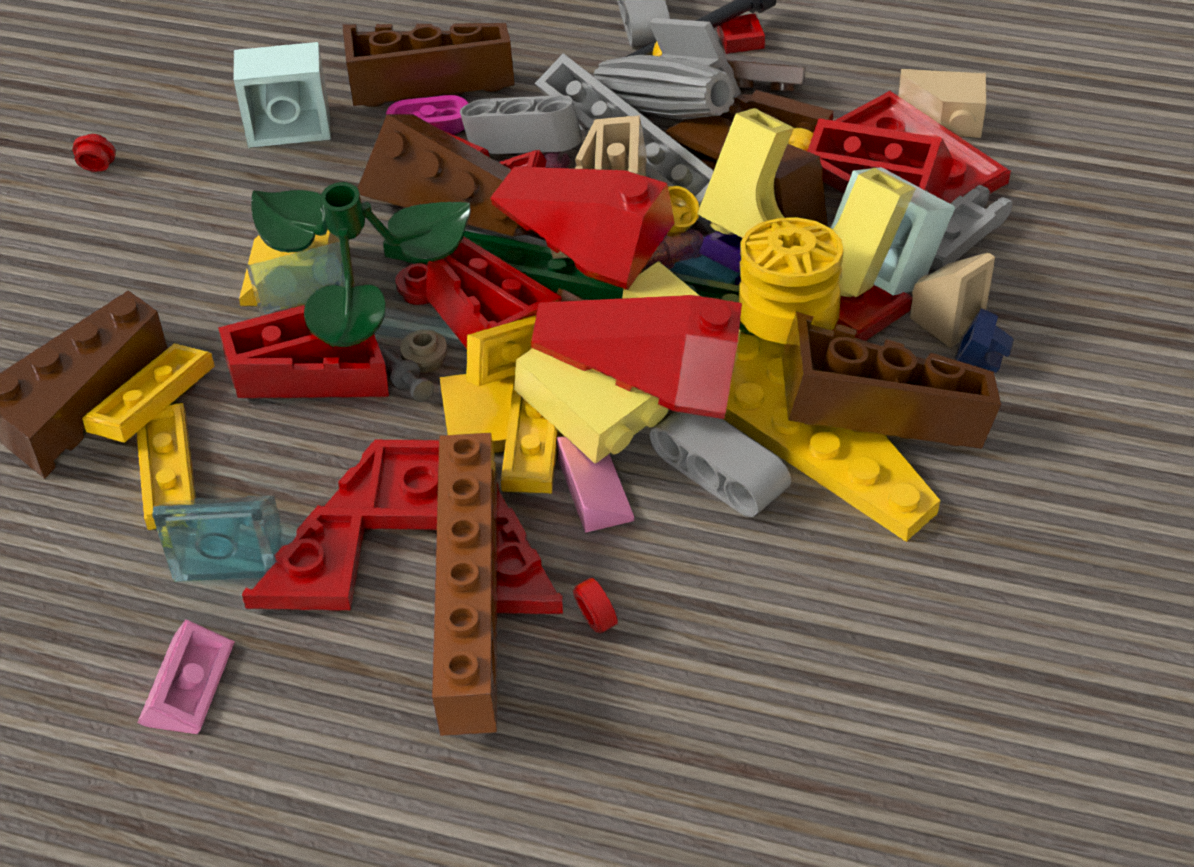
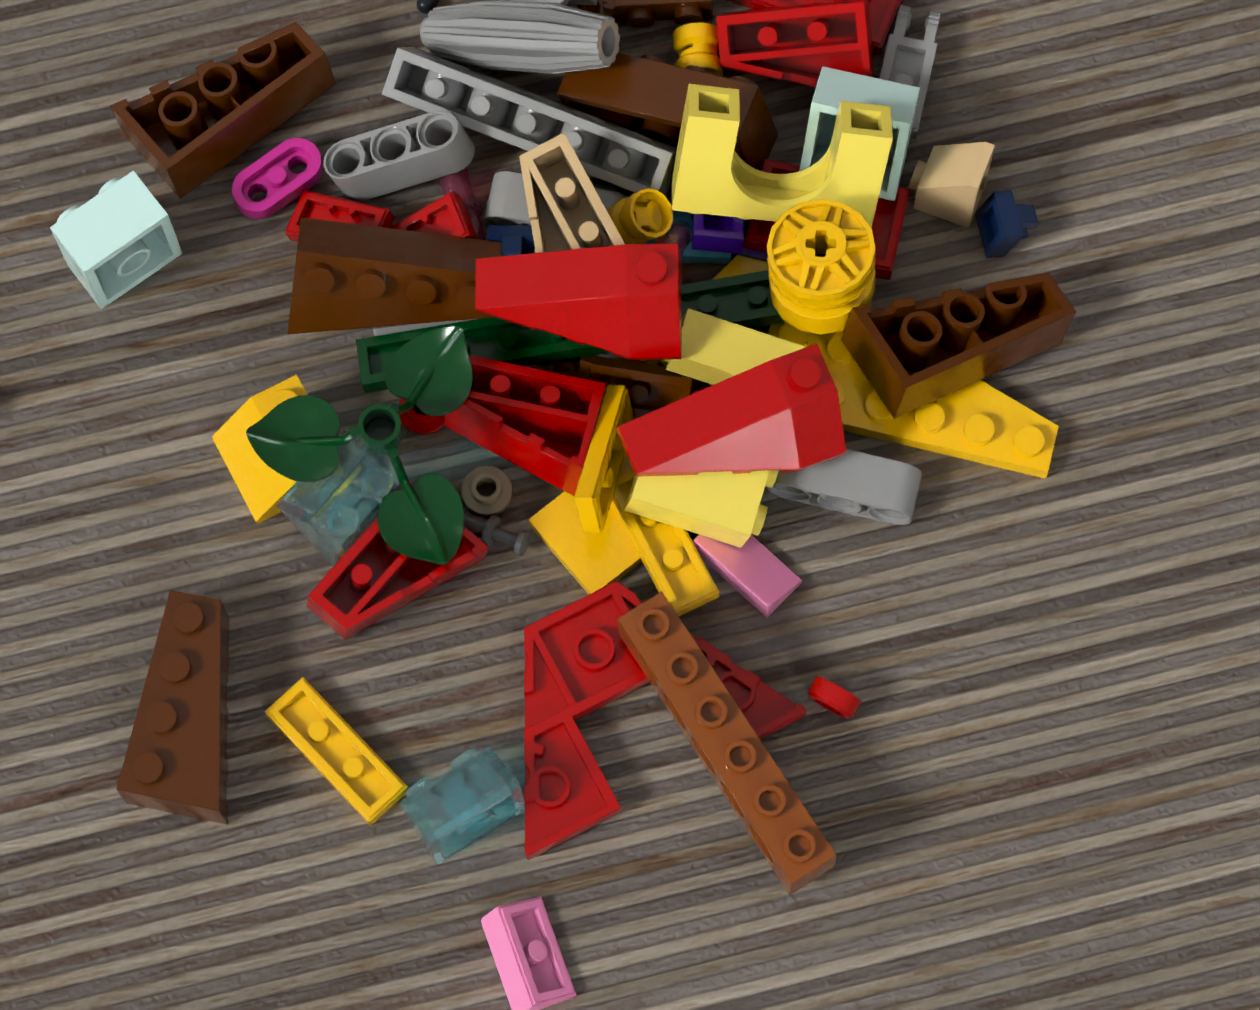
camera: 30 degrees left, 25 degrees up
(148, 392) = (265, 684): yellow tile -> none

